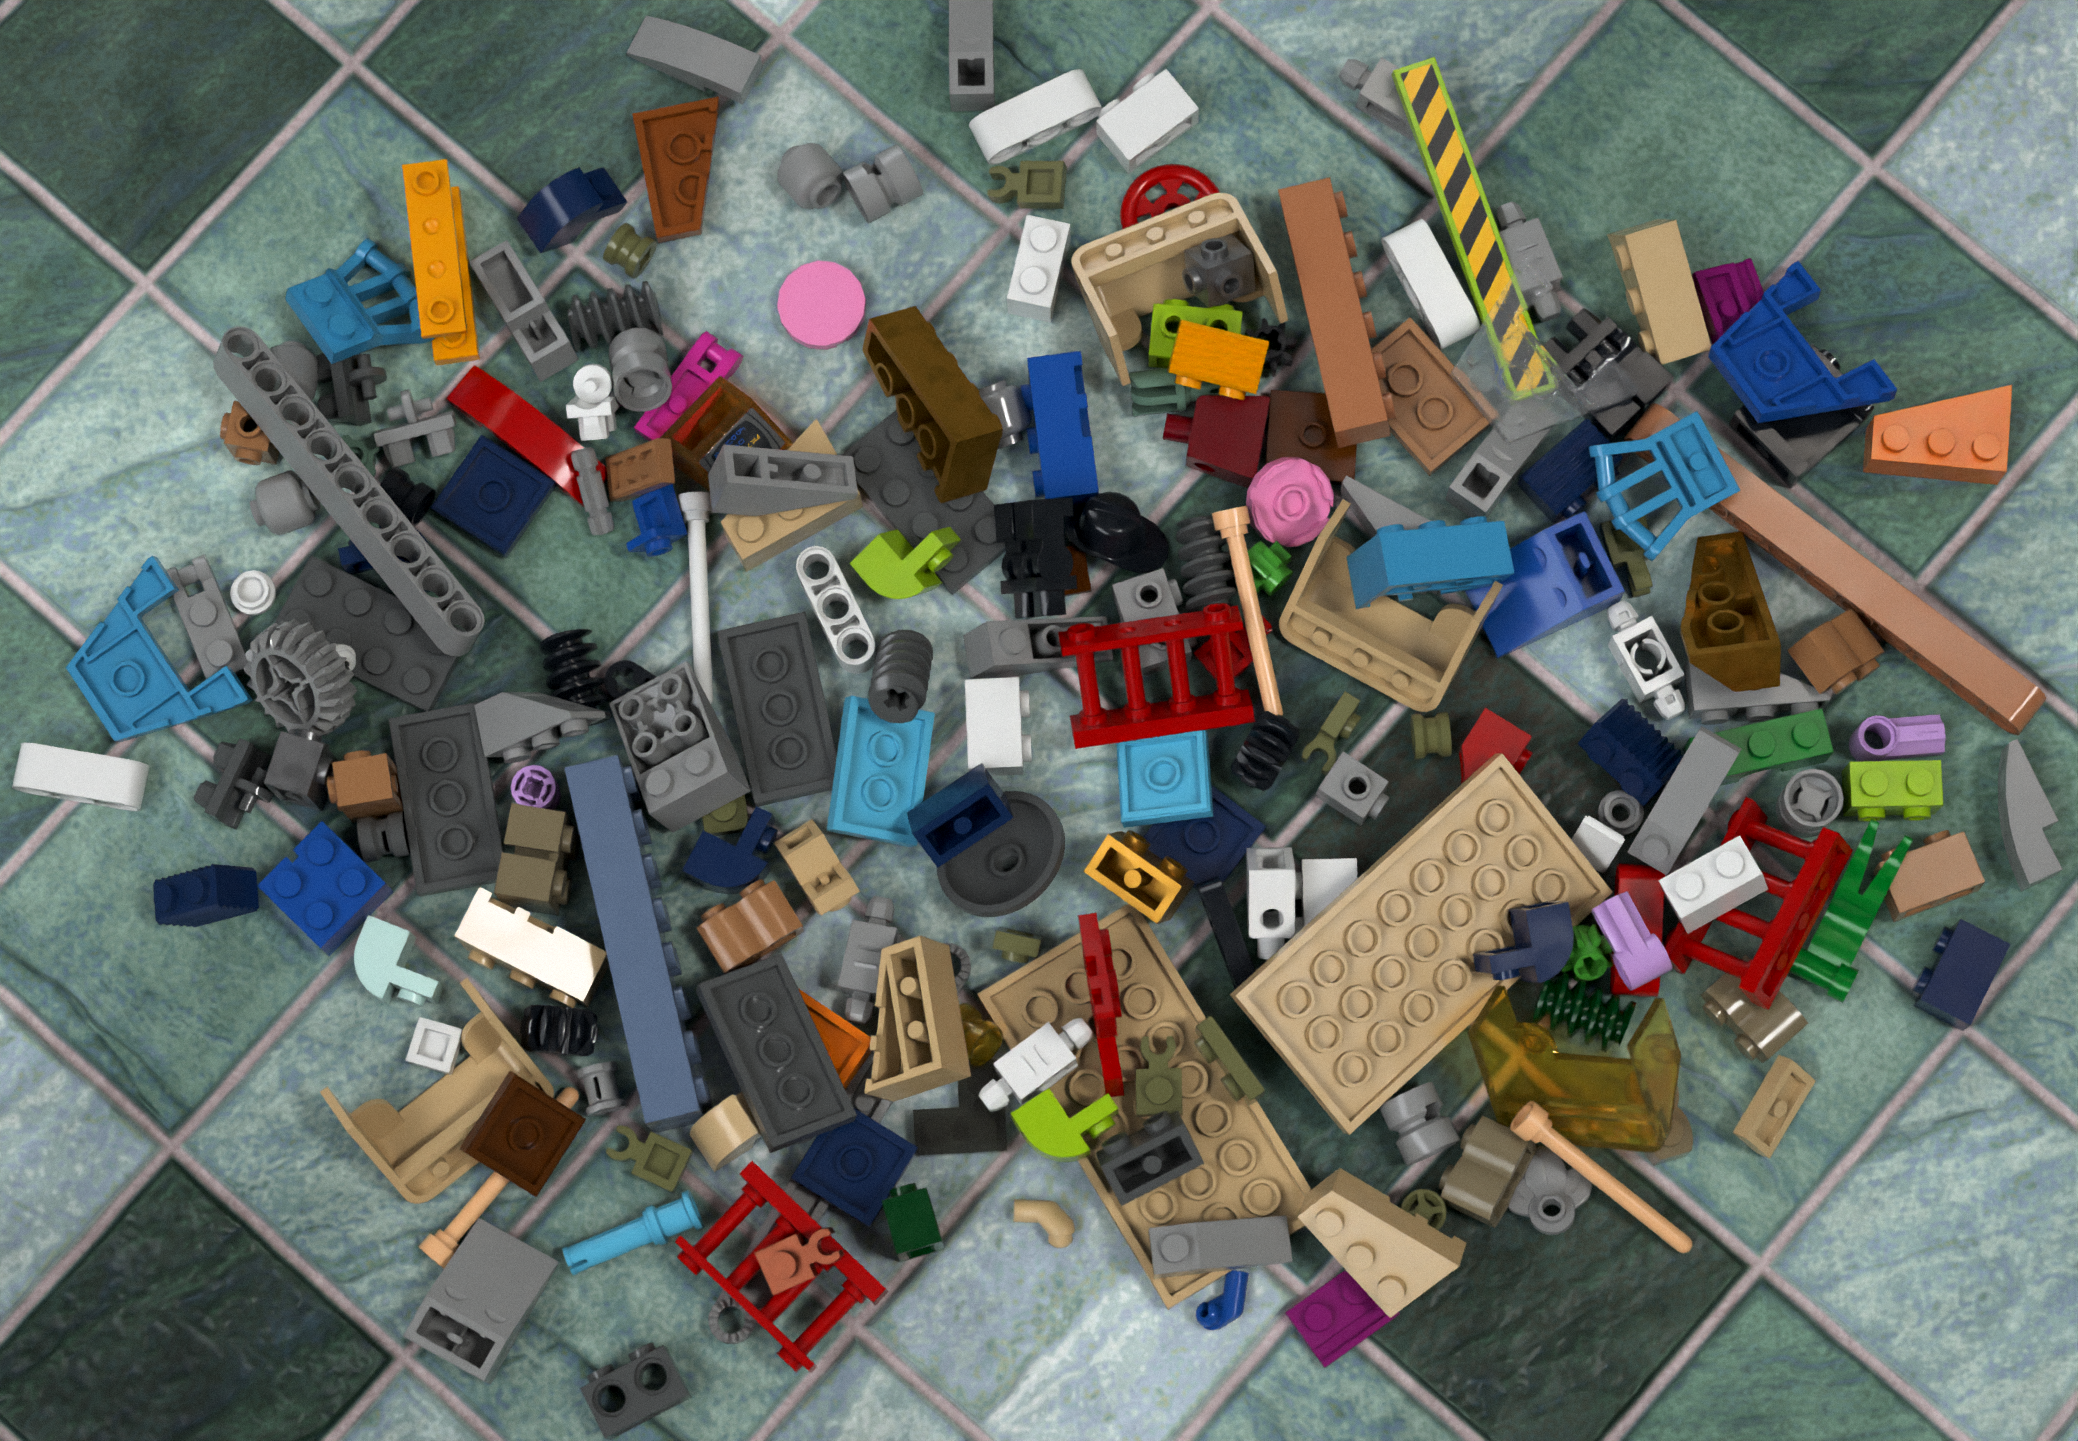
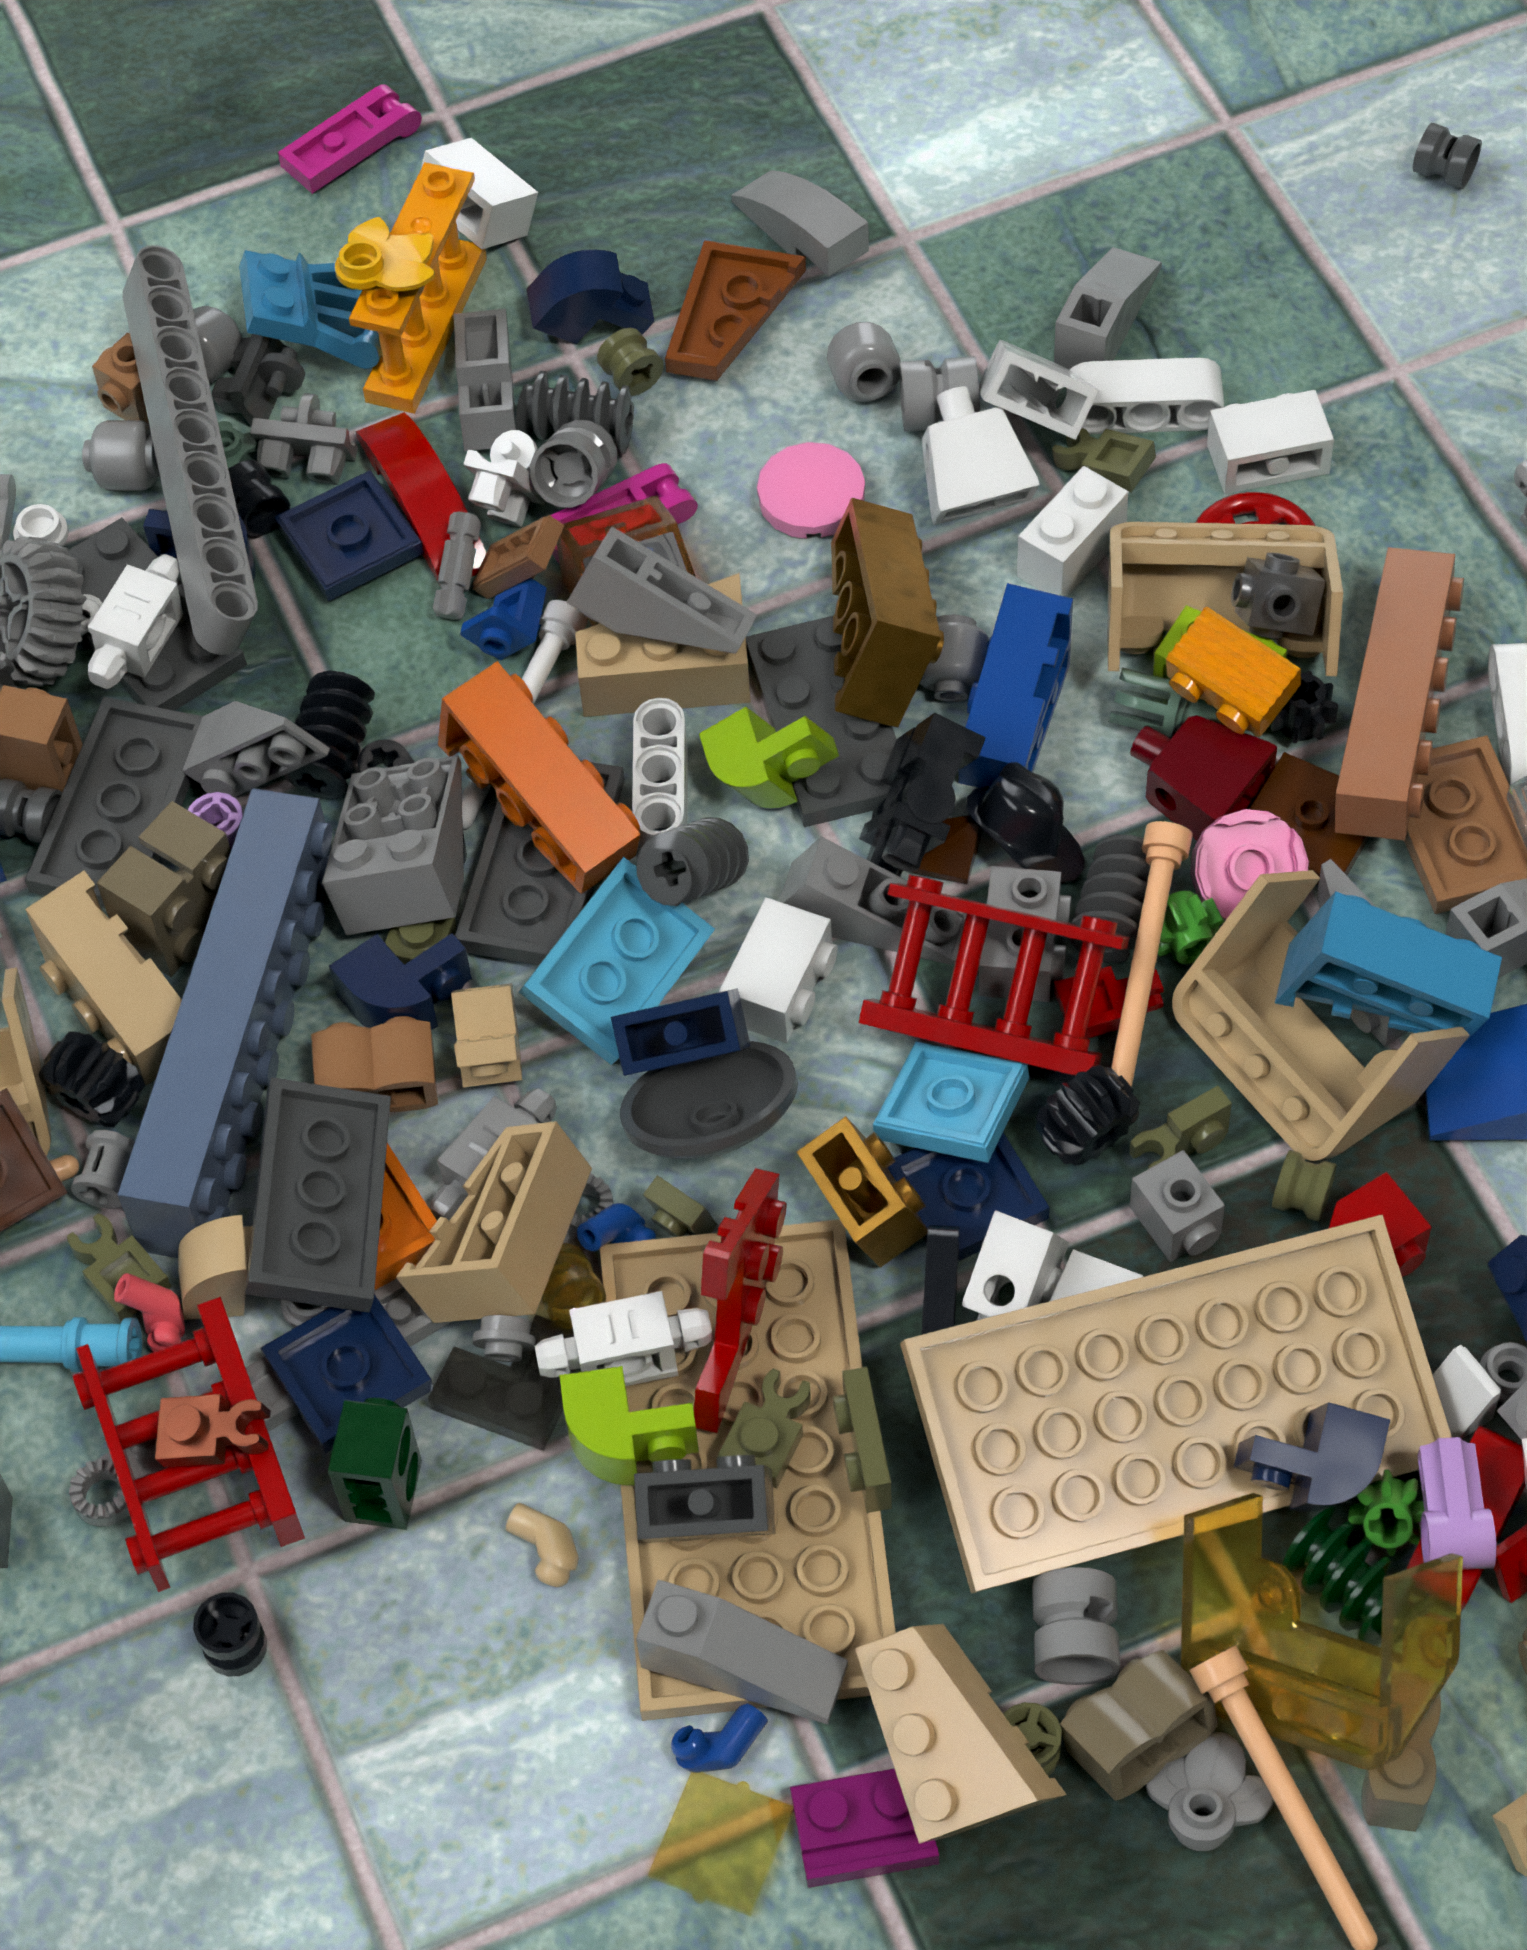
camera: 25 degrees right, 20 degrees down
(294, 127) = (348, 137): none -> dark pink plate
(385, 652) = (135, 621): none -> white piece
(425, 134) = (499, 200): none -> white brick
(427, 269) = (384, 259): none -> yellow plate
(699, 1176) = (159, 1310): none -> coral arm
(760, 659) = (537, 776): none -> orange wedge
(870, 1373) = (223, 1621): none -> black wheel
(937, 237) = (973, 460): none -> white torso
(952, 1096) = (504, 1337): none -> light grey plate
(957, 156) = (1030, 388): none -> white torso
(979, 976) = (614, 1225): none -> blue arm
(1256, 1365) = (721, 1842): none -> clear yellow piece

